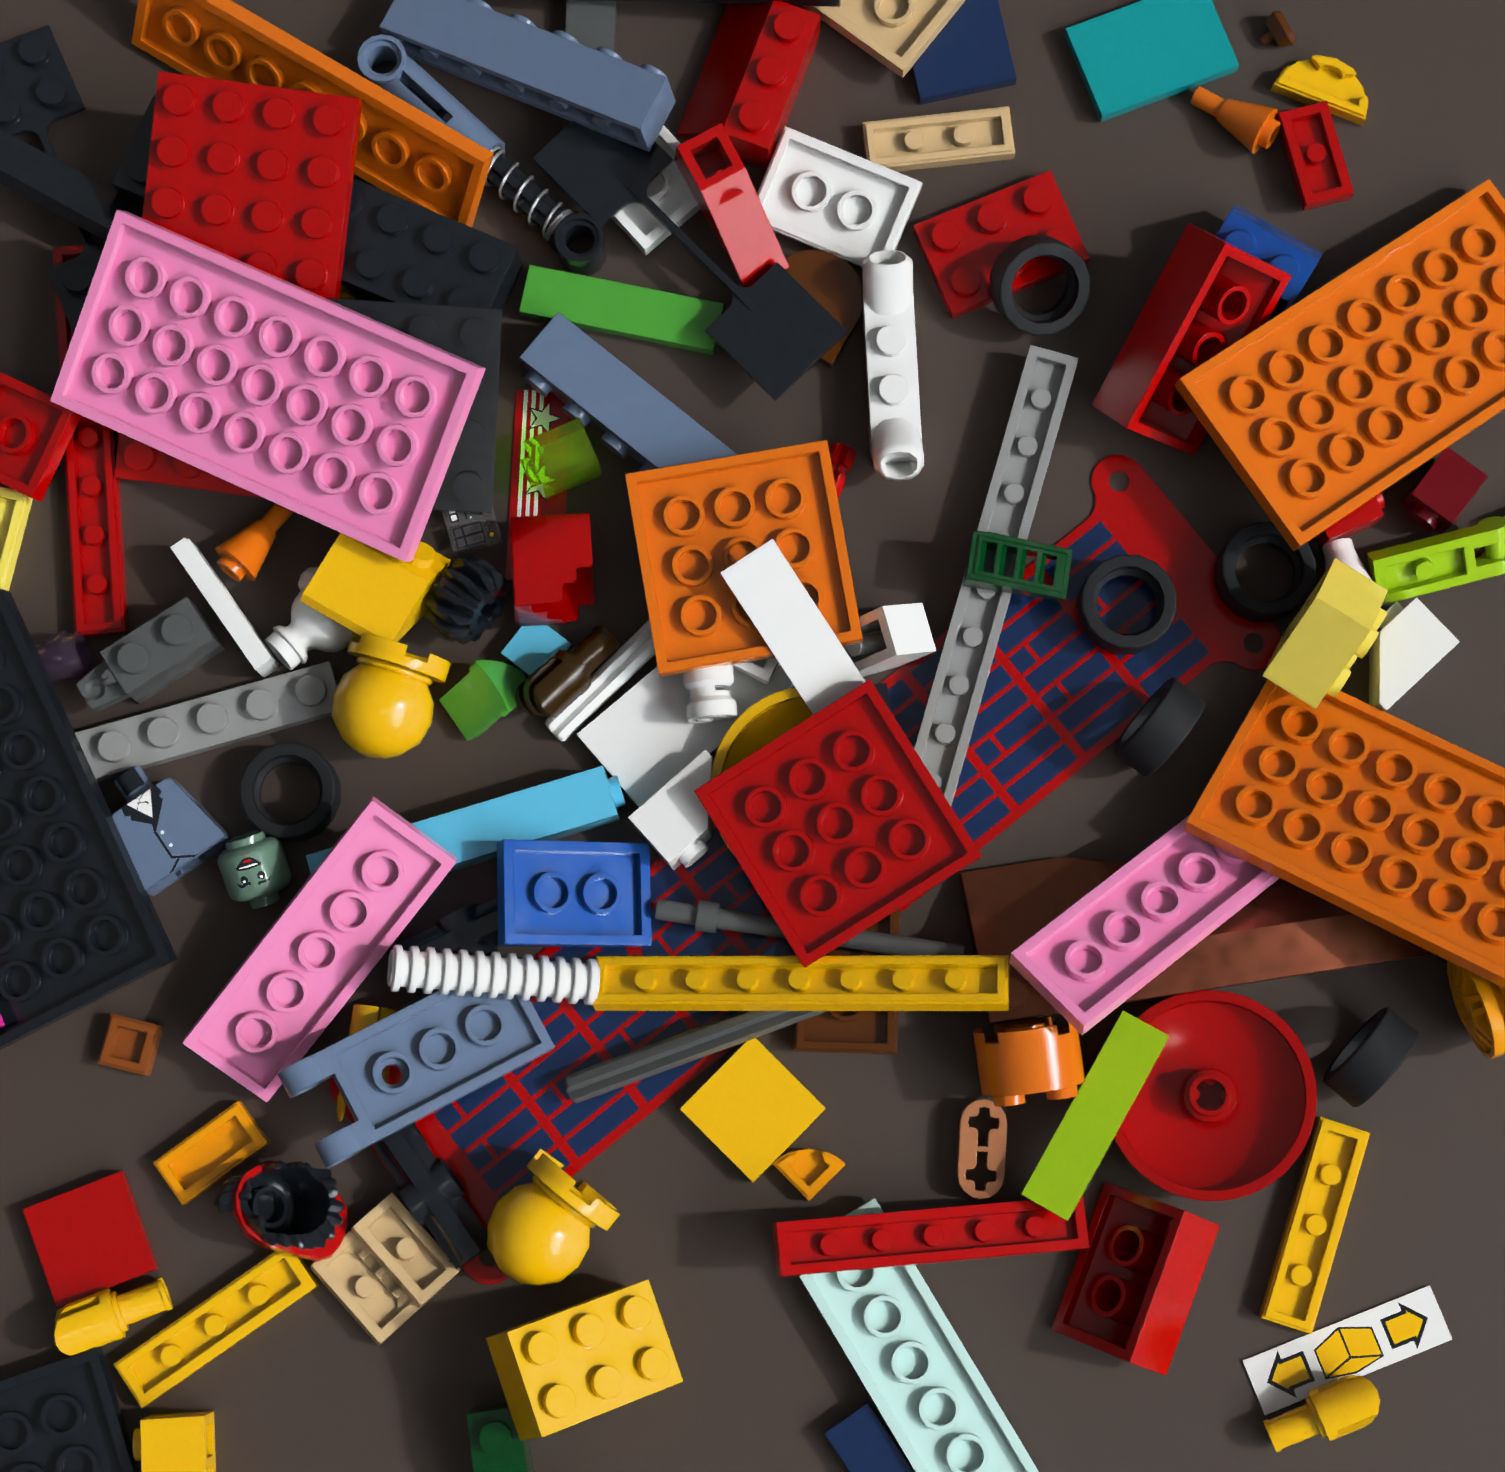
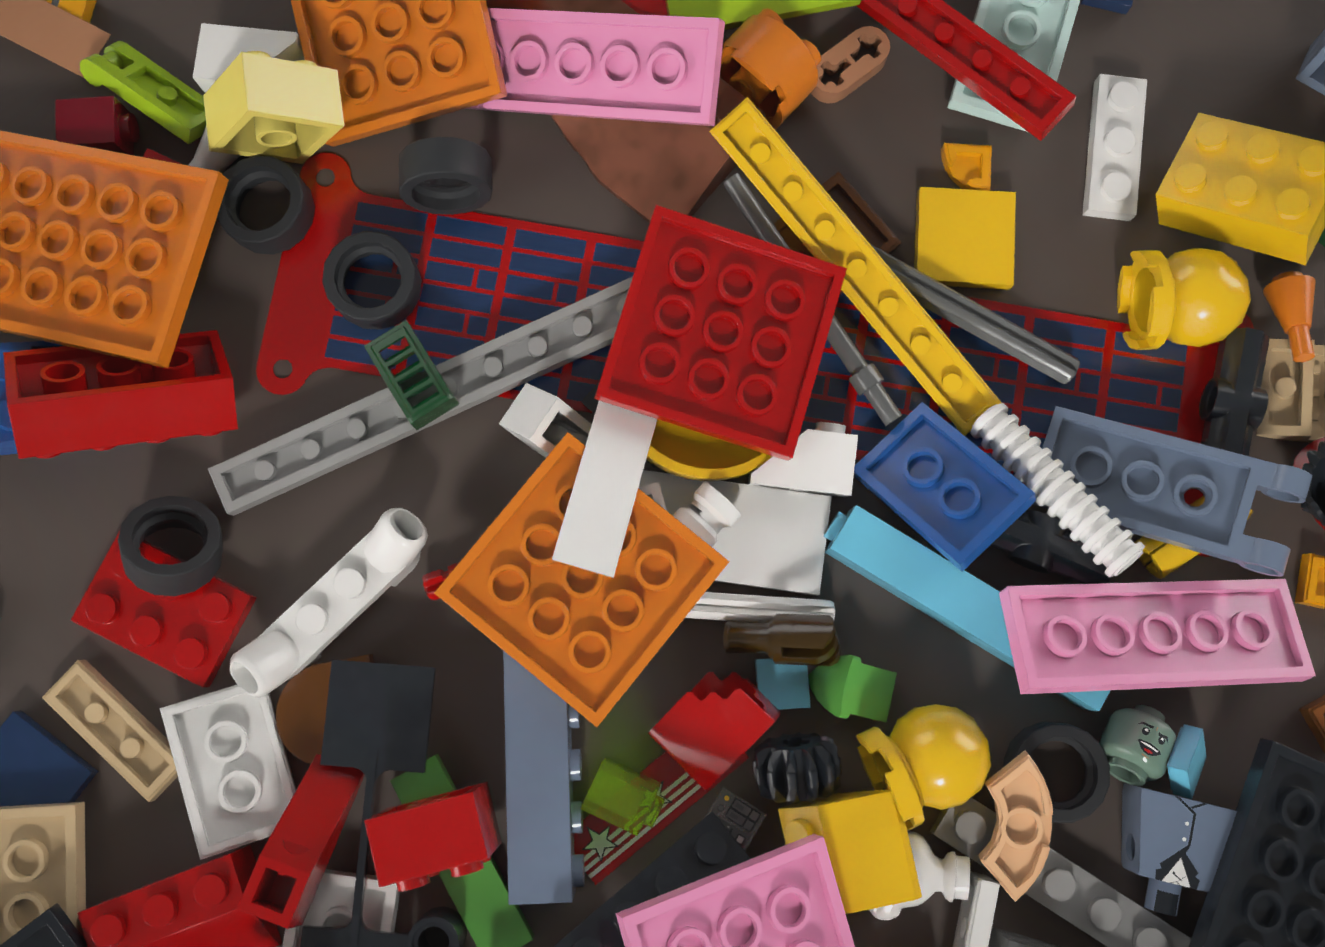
camera: 135 degrees left, 0 degrees up
(209, 893) = (1187, 761): none -> medium azure tile
(278, 724) = (1022, 825): none -> light nougat tile
(463, 1316) = (1292, 302): none -> orange cone
(652, 299) = (433, 835): none -> red brick
(719, 1306) = (1115, 147): none -> white plate

